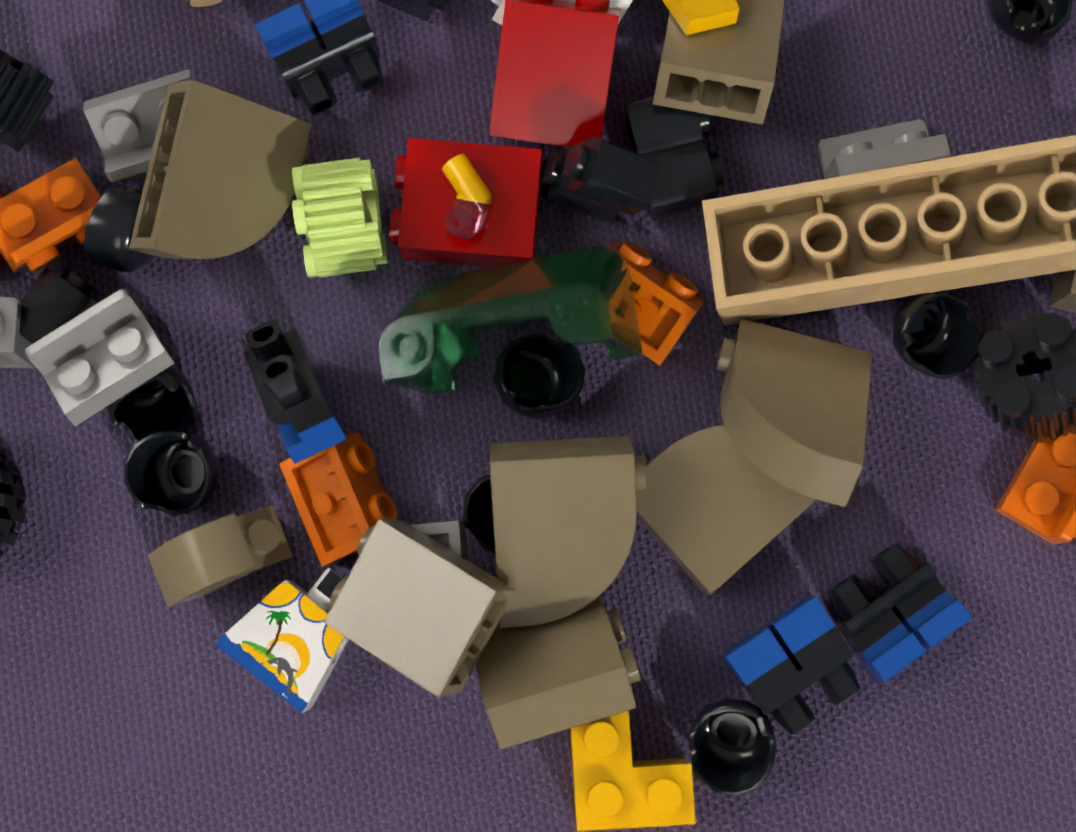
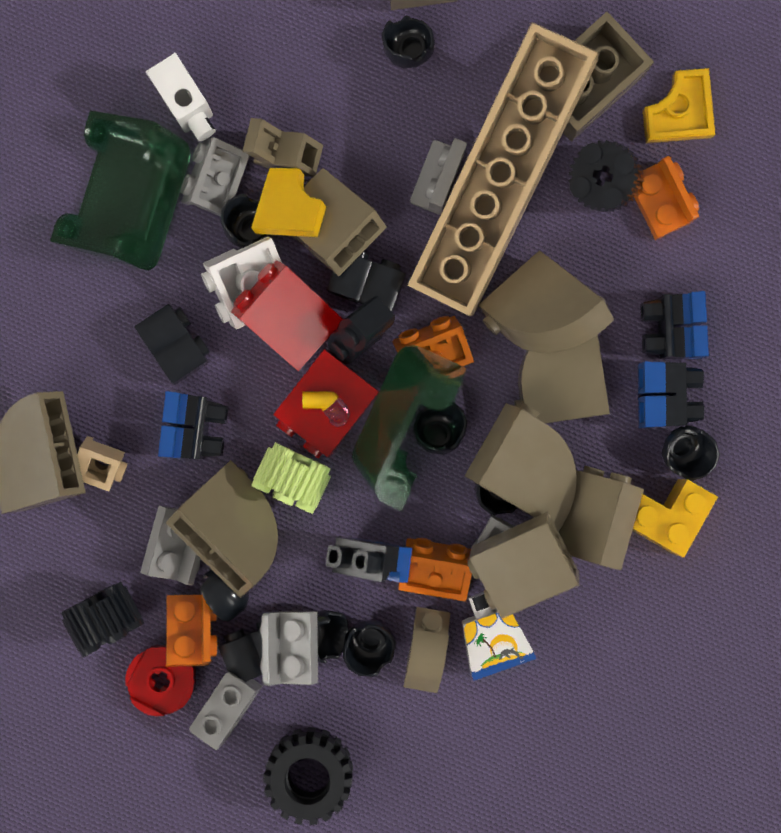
camera: 60 degrees left, 5 degrees up
(936, 334) = (551, 210): black hair -> none

